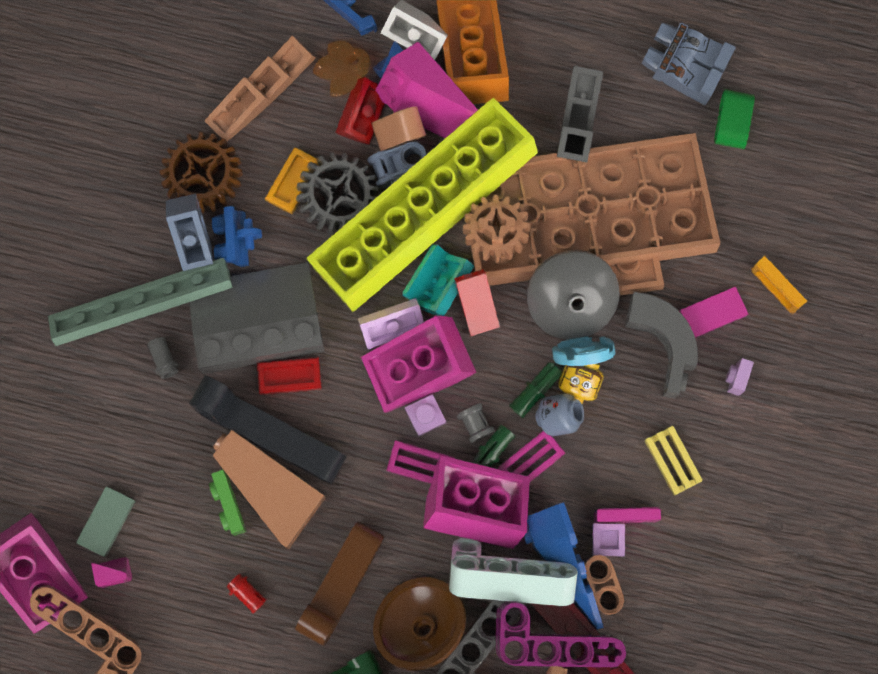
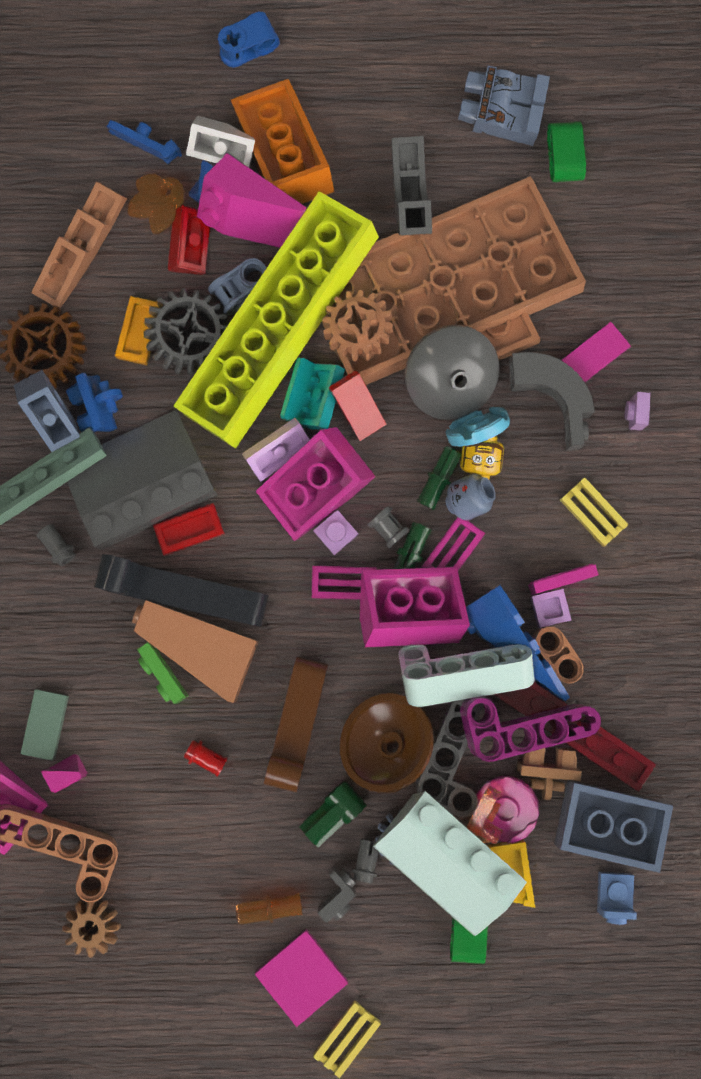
camera: 15 degrees left, 5 degrees up
(398, 128) = (231, 248): nougat beam -> none
(778, 285) = (653, 309): light orange tile -> none

